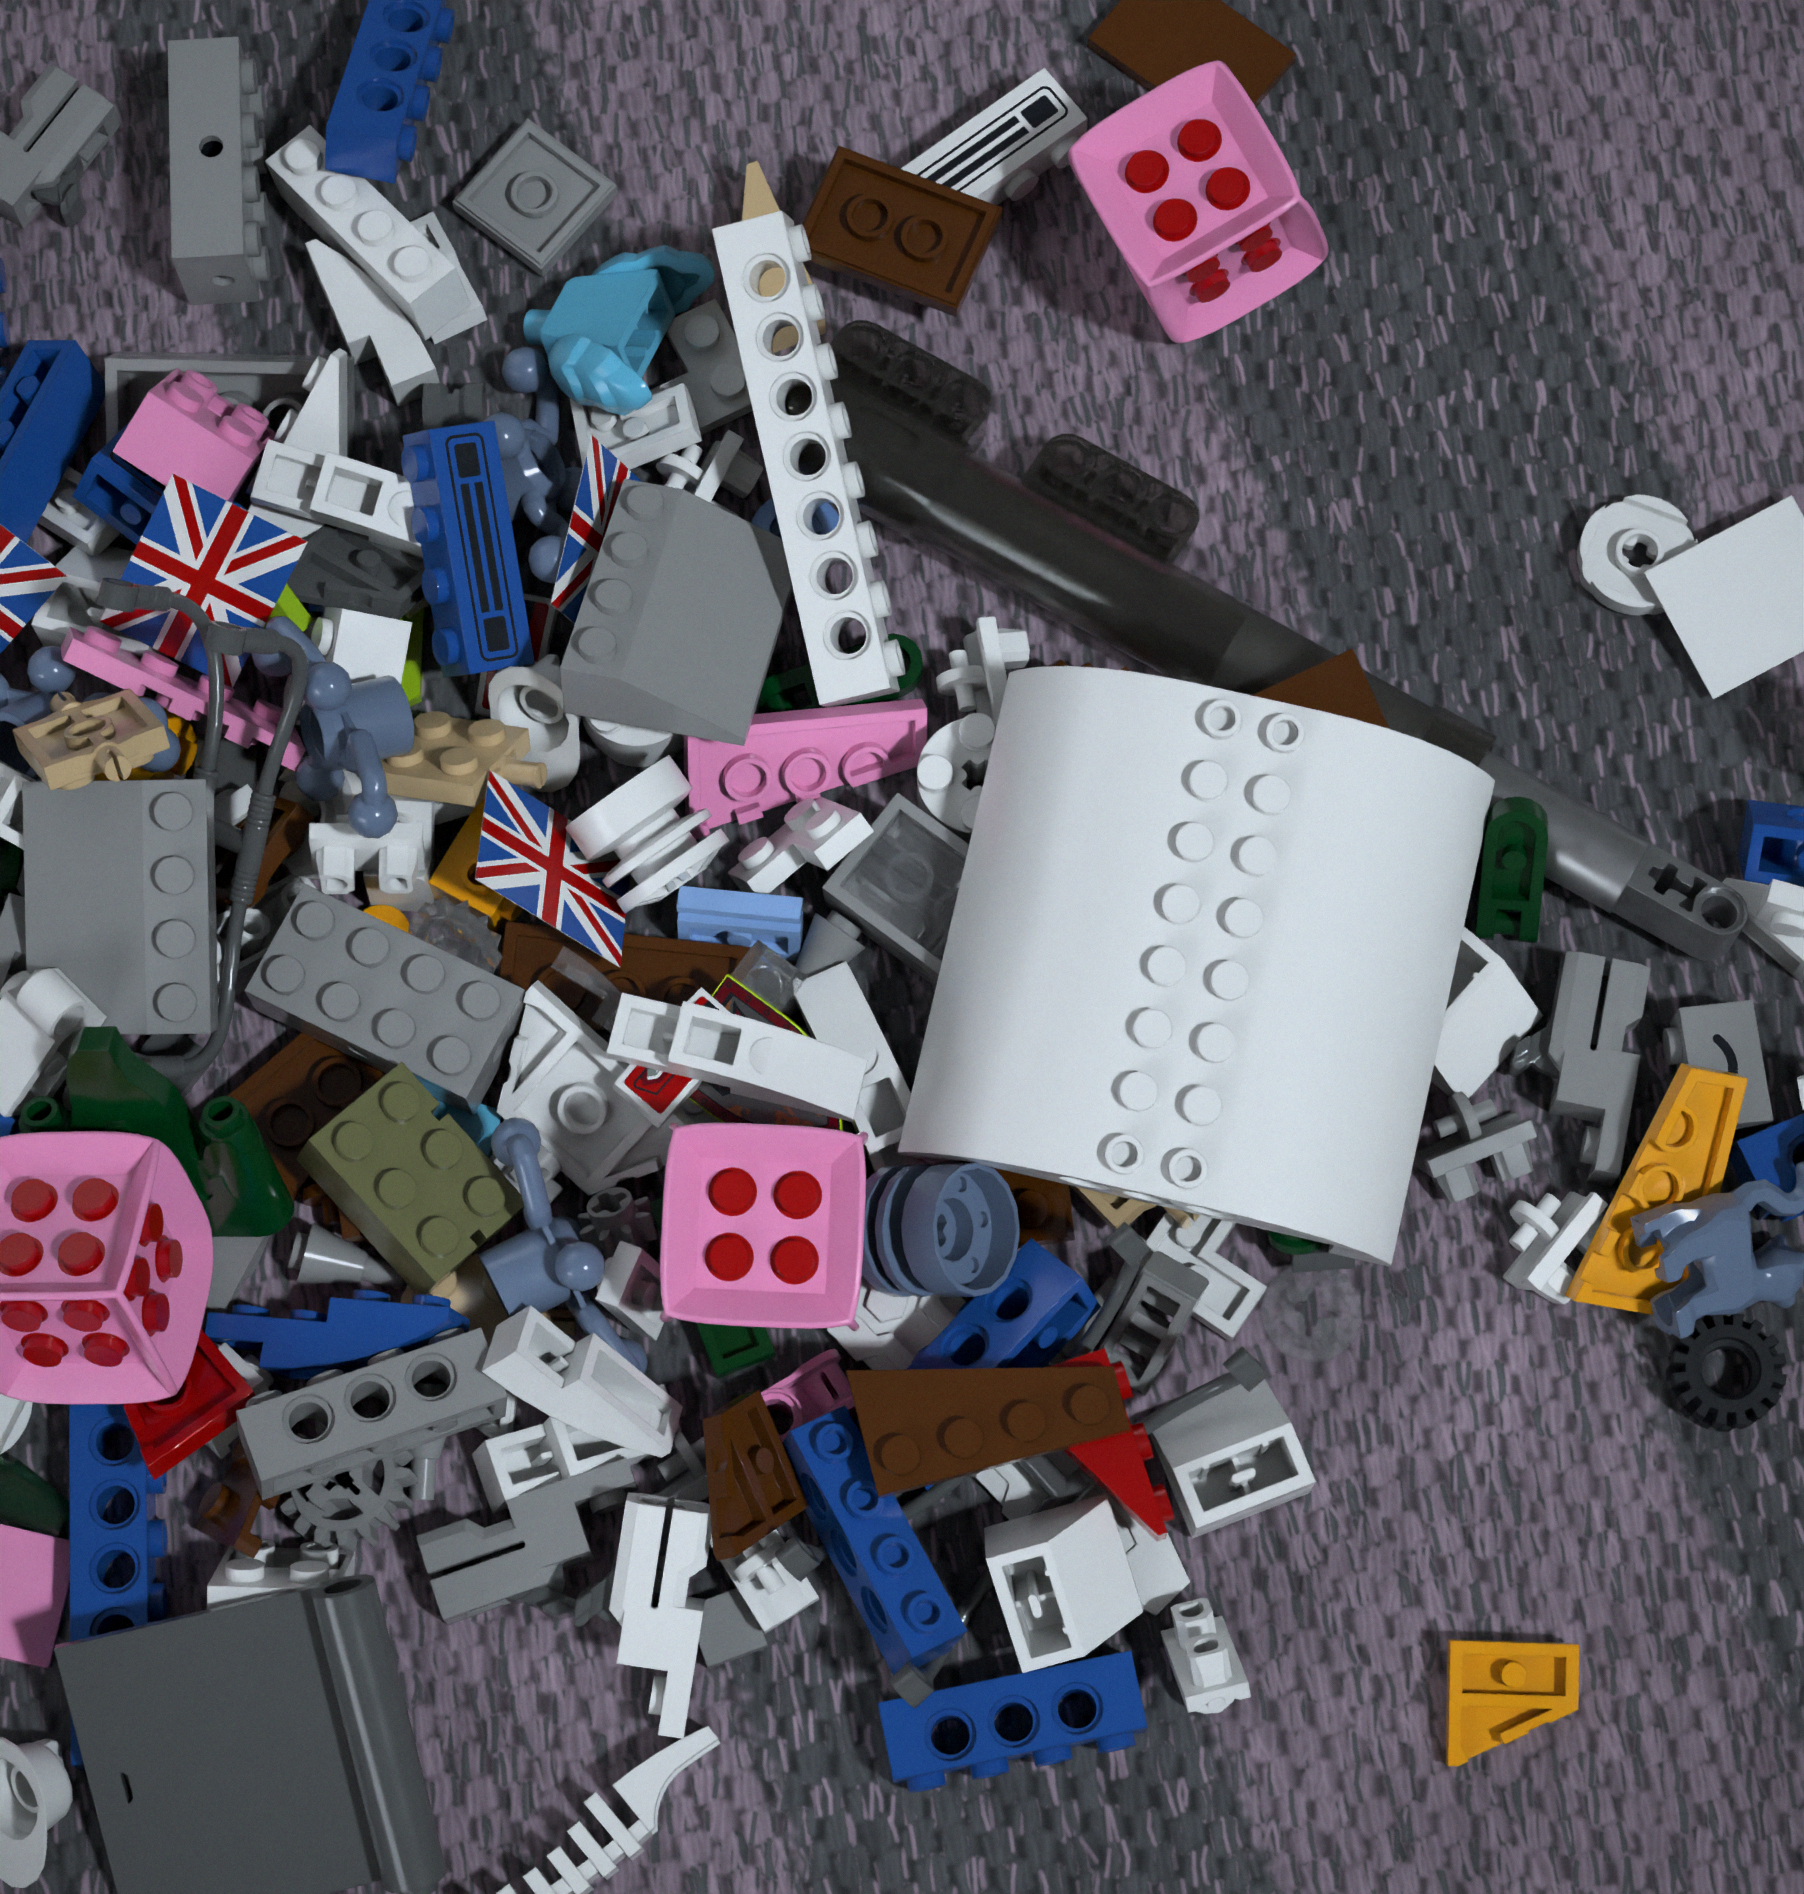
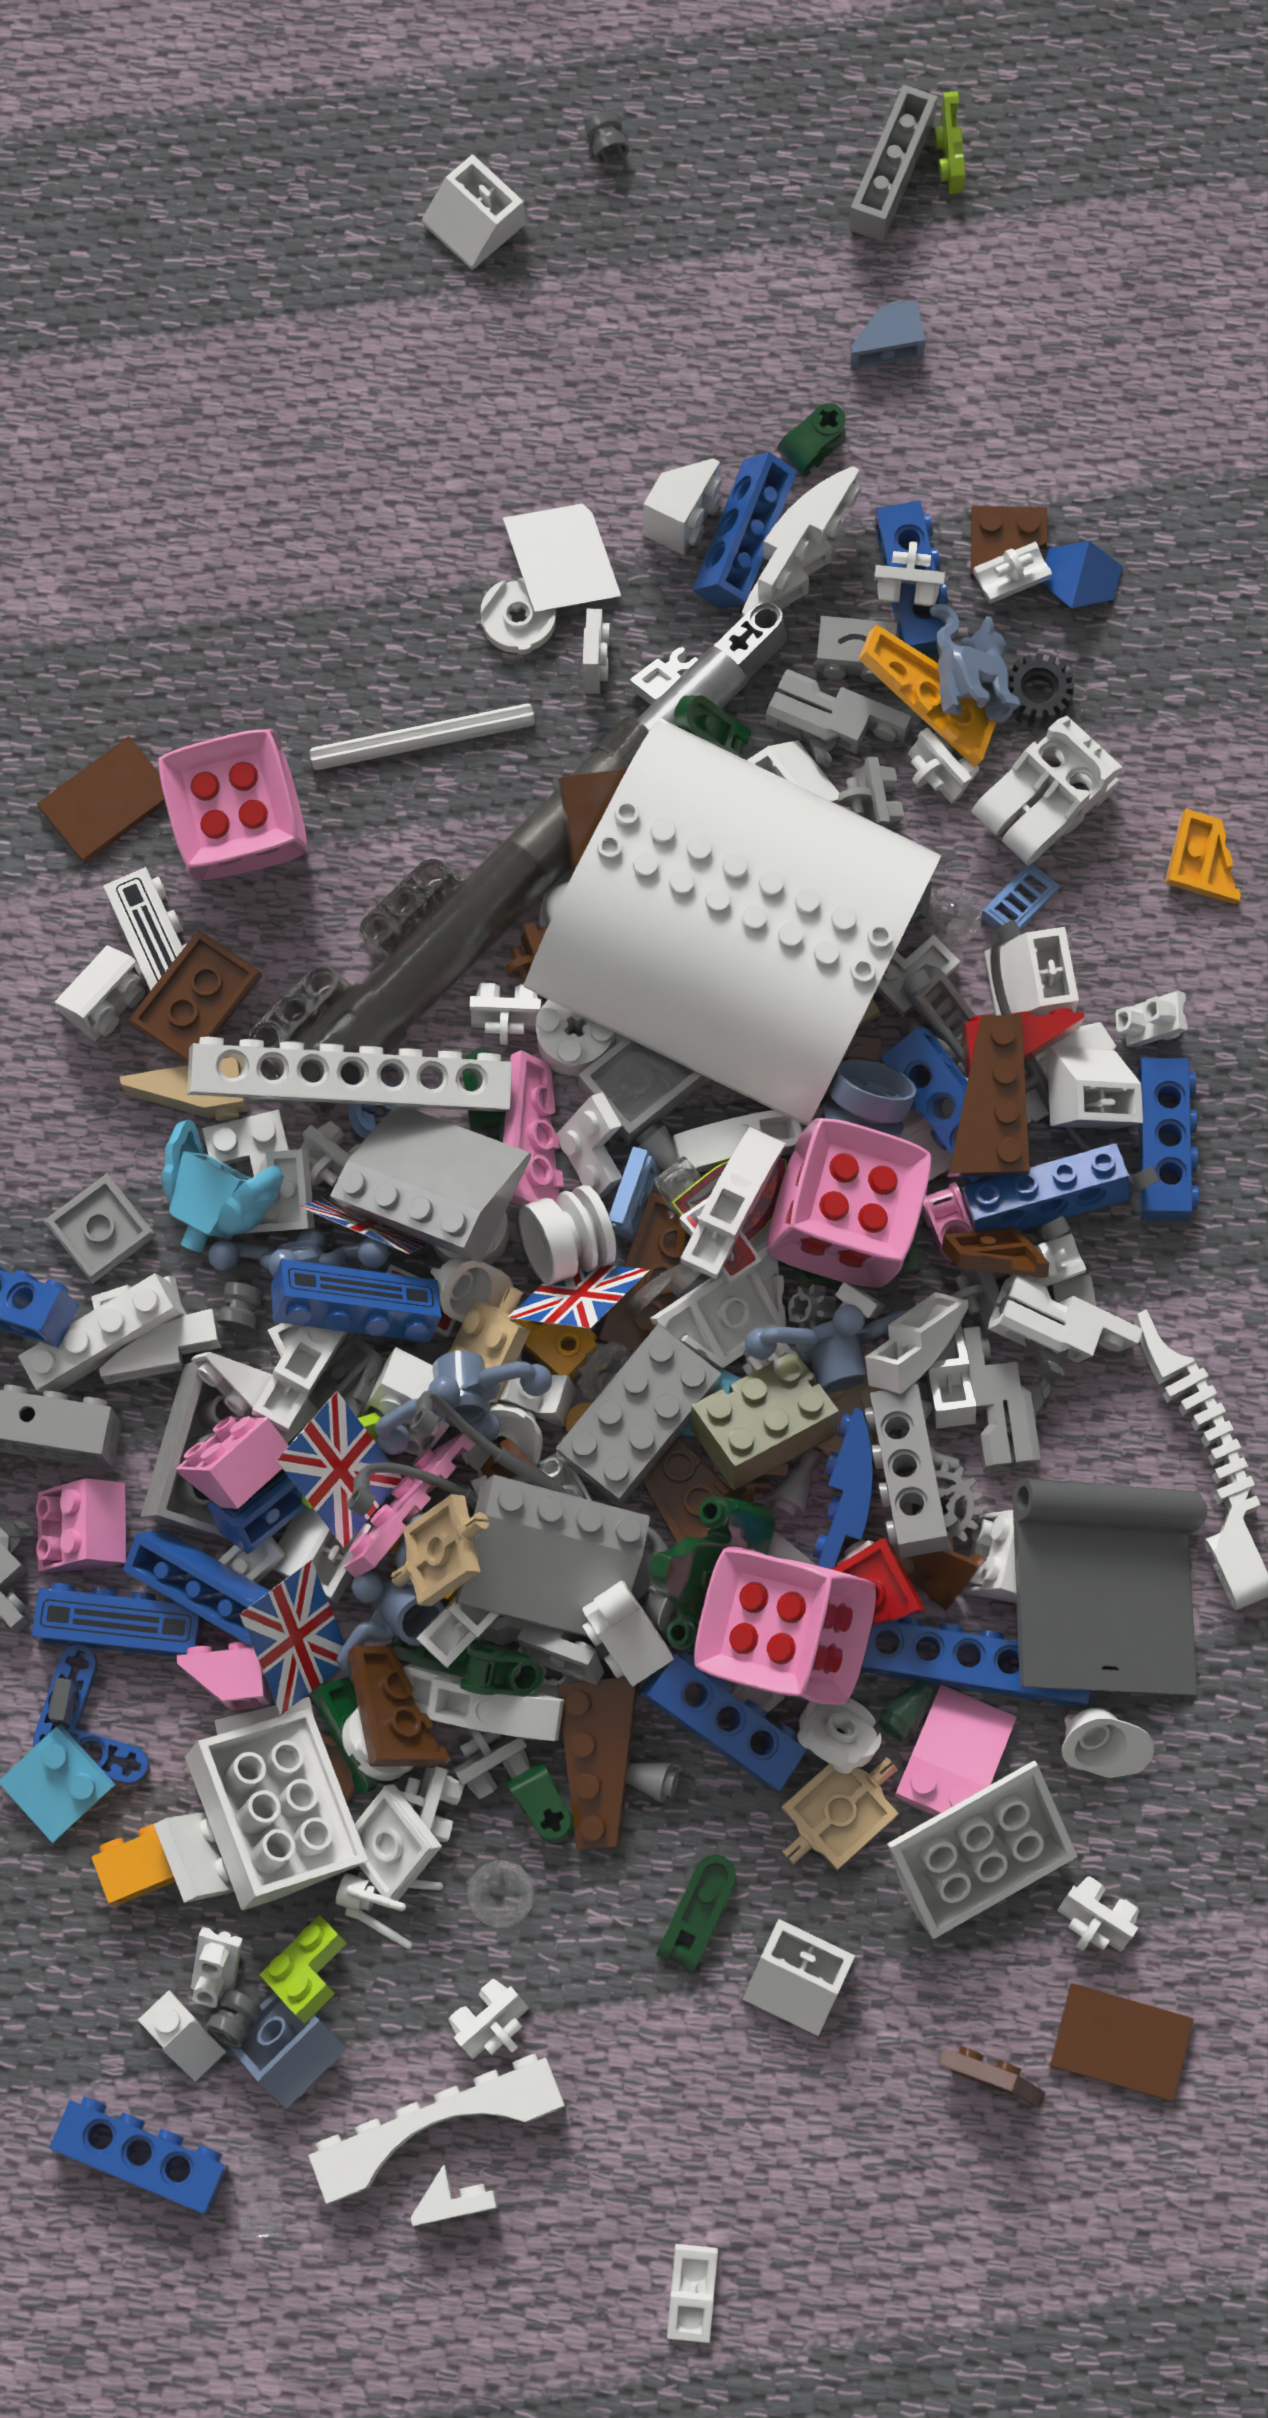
camera: 75 degrees left, 0 degrees up
(90, 277) = (81, 1526): none -> bright pink slope
(341, 851) = (538, 1411): white hips -> none
(881, 108) = (102, 993): none -> white slope
(1329, 1423) = (995, 919): none -> medium blue slope
(1405, 465) = (422, 736): none -> white axle
(1554, 1385) = (1055, 803): none -> white connector
(1593, 783) = (658, 677): none -> white plate
(1599, 669) = (595, 651): none -> white plate

